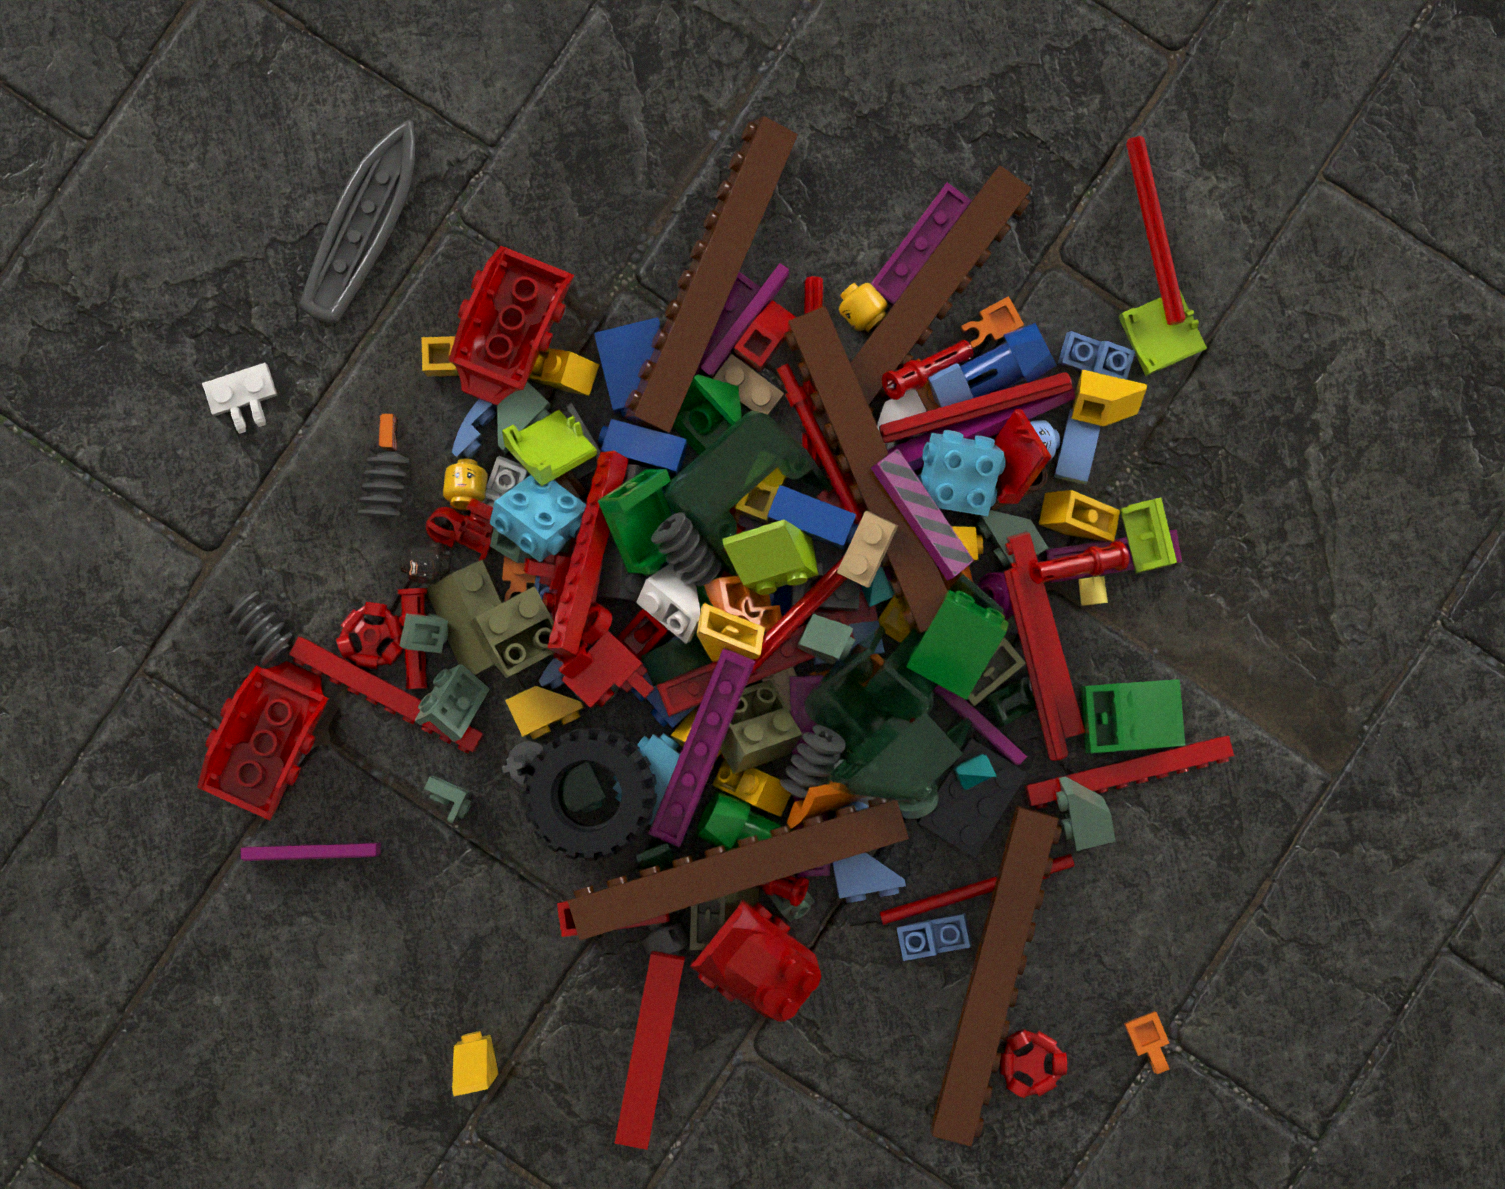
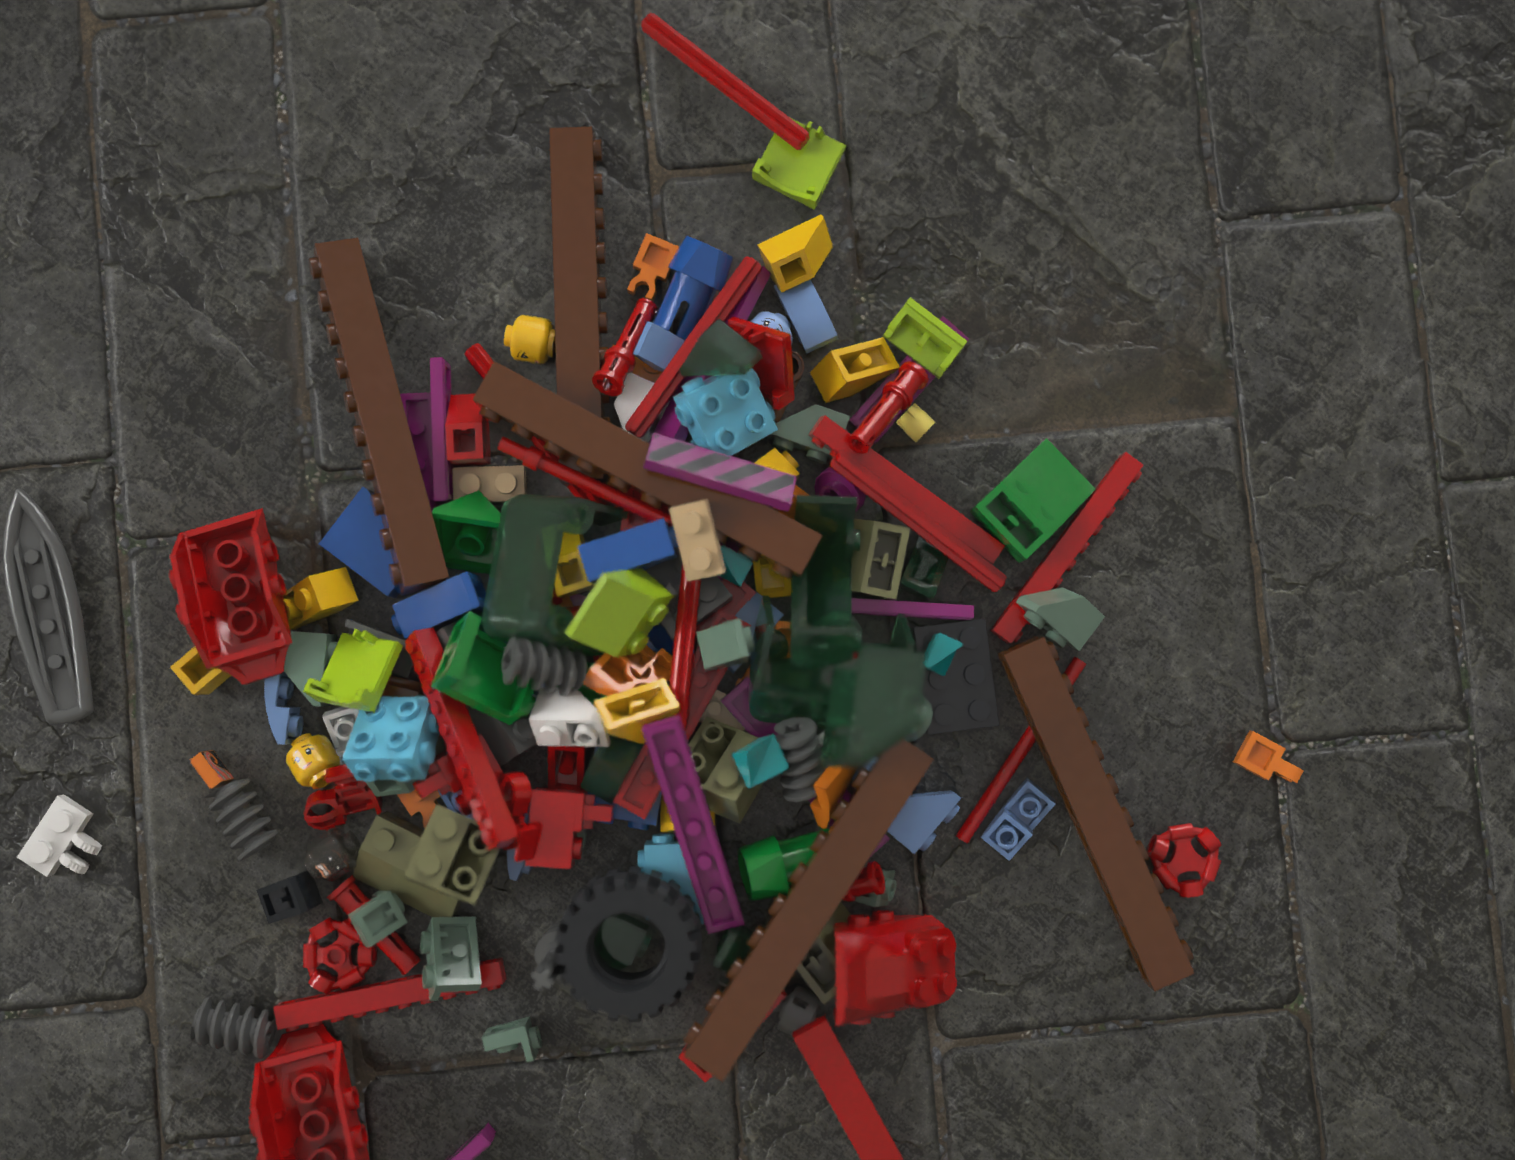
camera: 40 degrees left, 0 degrees up
(369, 566) = (289, 897): none -> black slope
(539, 708) = (530, 900): yellow slope -> none
(753, 787) = (767, 818): yellow slope -> none
(785, 740) = (760, 760): none -> teal slope
(920, 243) = (536, 248): magenta tile -> none
(958, 643) = (841, 558): green panel -> none
(991, 430) = (720, 353): none -> clear green slope
(1095, 356) = (757, 226): medium blue slope -> none

